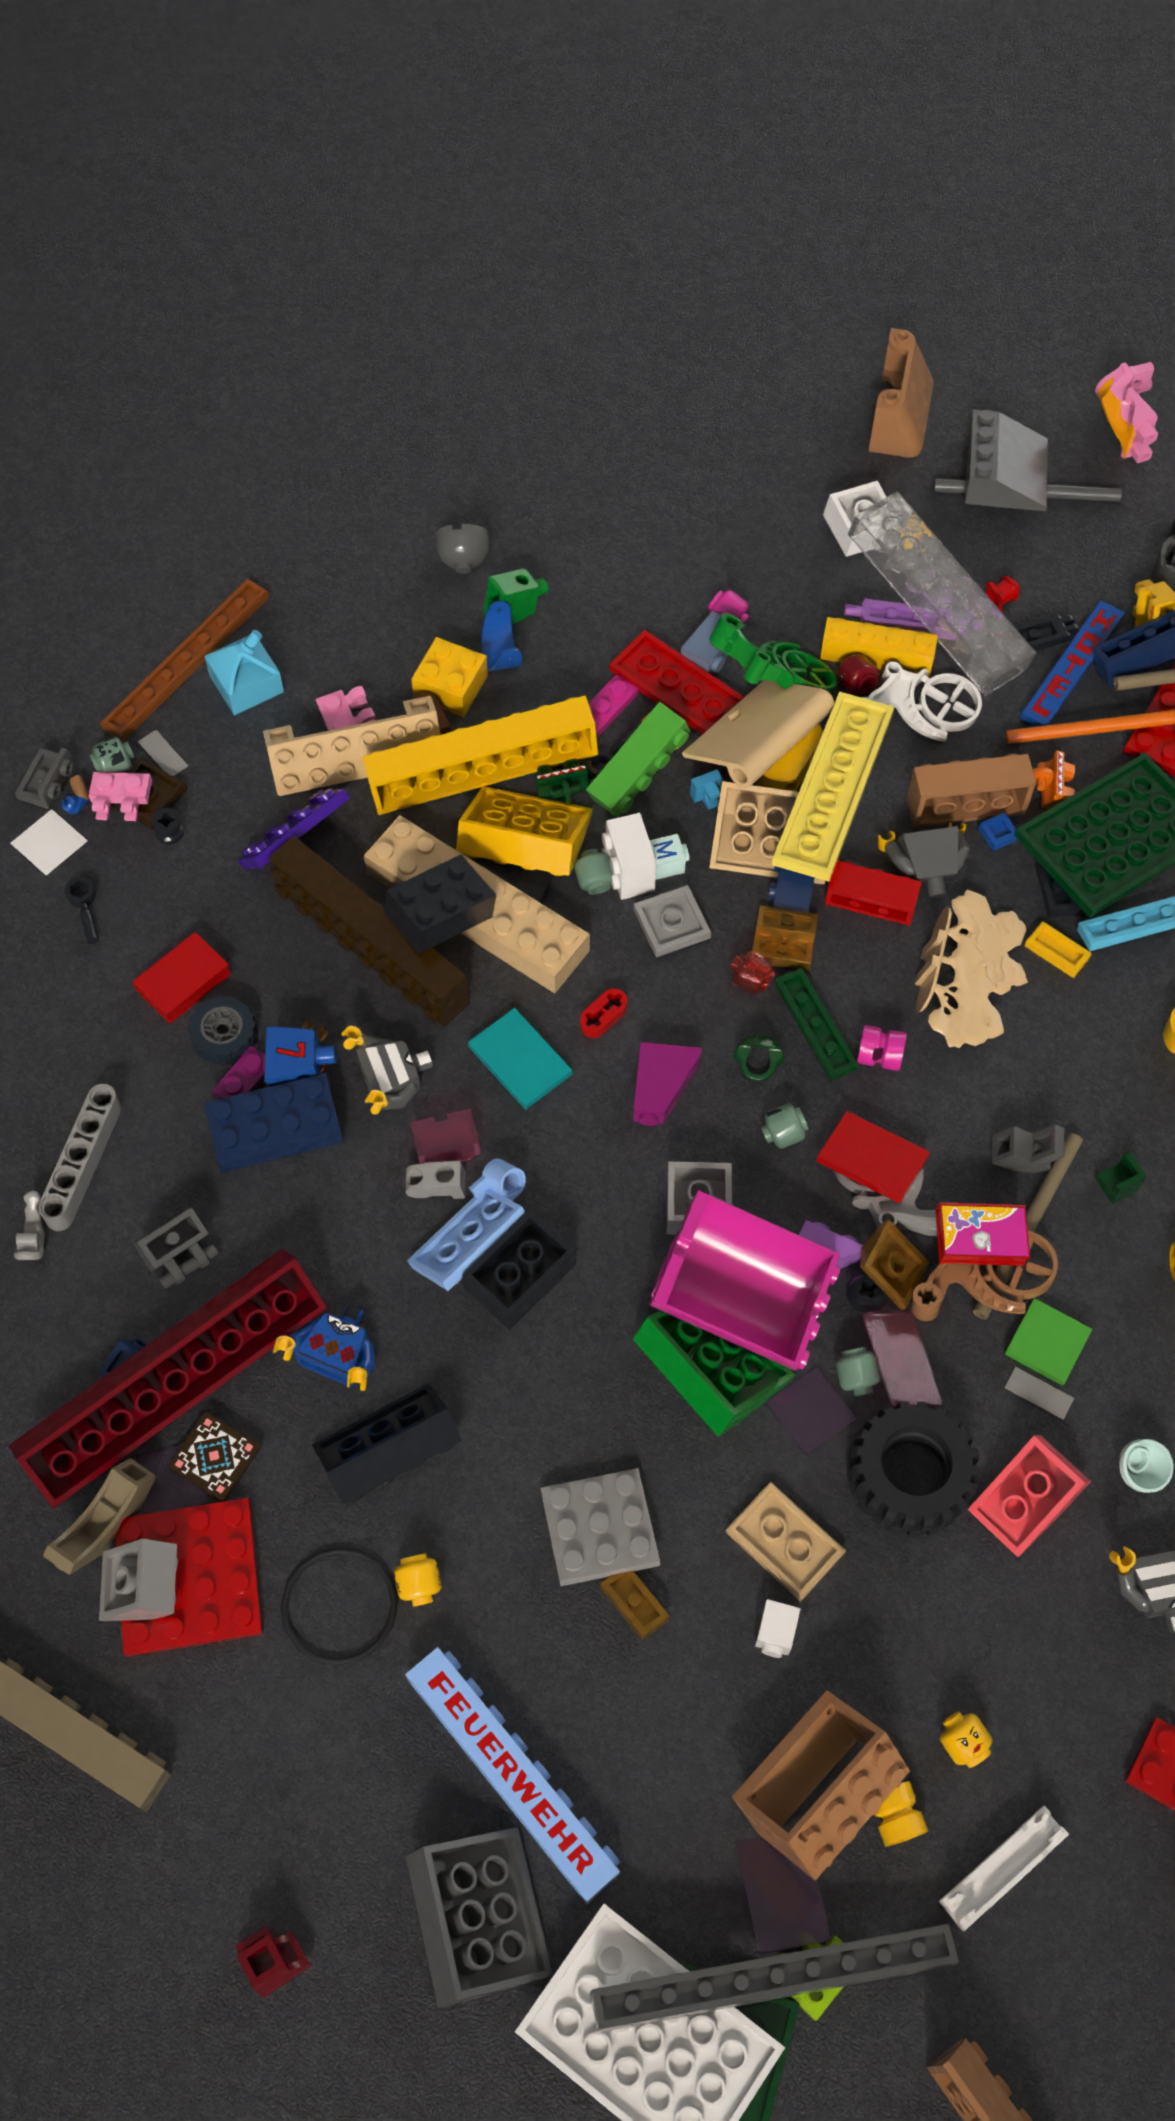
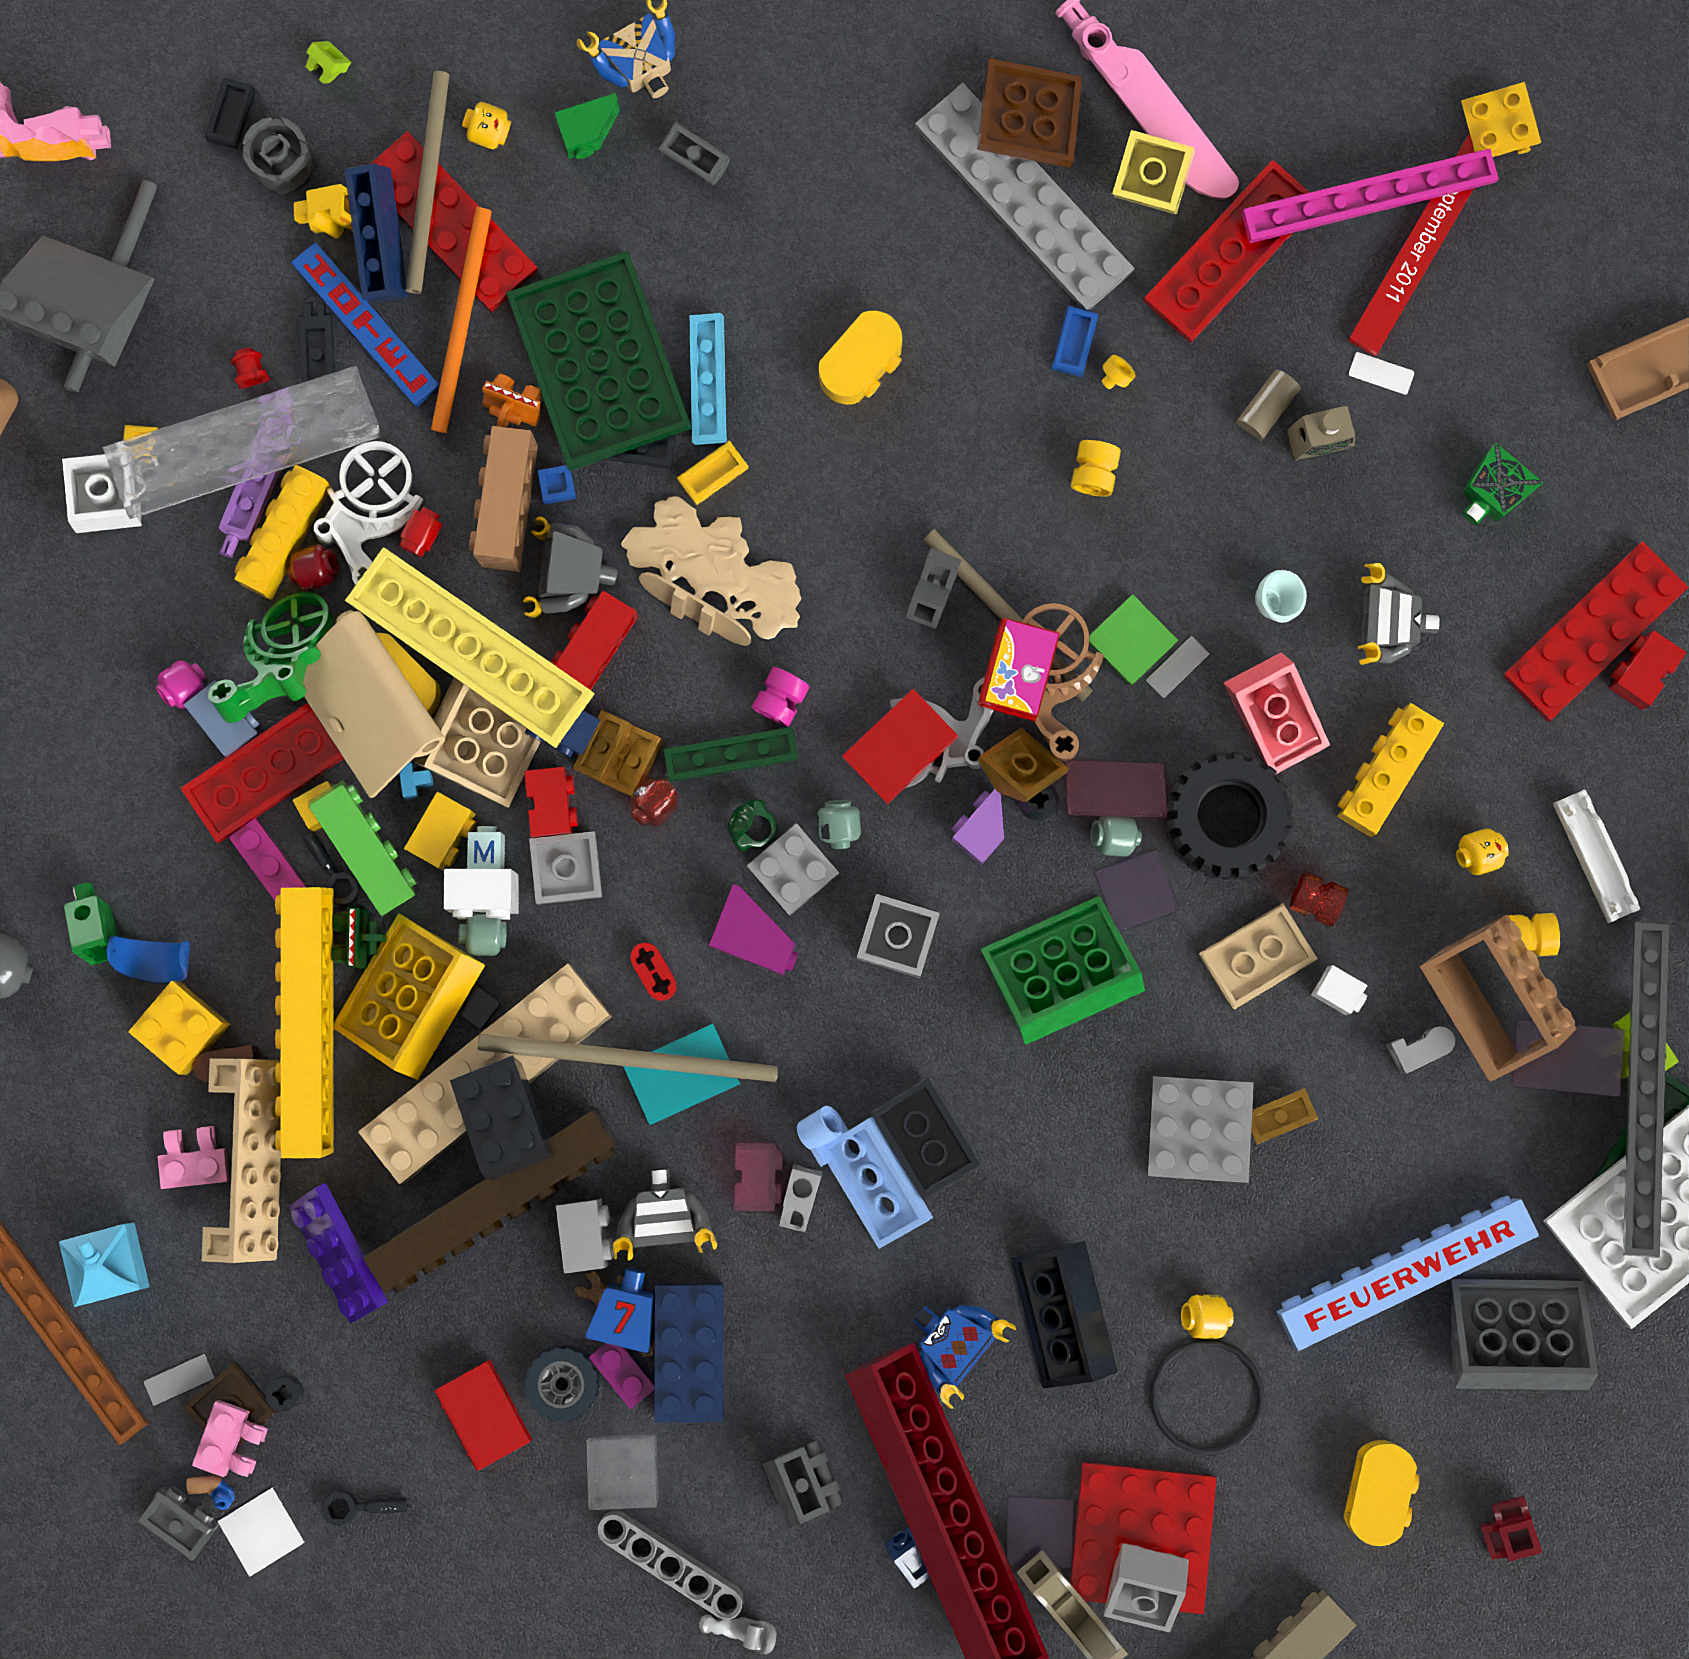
camera: 75 degrees left, 20 degrees up
(112, 756) = (176, 1440): sand green head -> none
(155, 1093) = (622, 1471): none -> clear brick
(214, 1457) = (1032, 1487): dark brown tile -> none
(280, 1805) = (1381, 1493): none -> yellow brick
(358, 1003) = (584, 1235): none -> light grey brick
(521, 1003) = (626, 1057): none -> dark tan piece
(672, 815) = (441, 831): none -> yellow brick
(725, 894) = (551, 798): none -> red brick
(730, 1102) = (793, 869): none -> light grey plate
(744, 1733) = (1433, 1045): none -> light grey leg
(746, 1281) = (1012, 923): dark pink cylinder -> none
(861, 1582) = (1317, 898): none -> clear red wheel
(917, 742) = (420, 532): none -> red brick
(1016, 1621) = (1389, 770): none -> yellow brick
(1121, 1178) = (987, 507): dark green panel -> none

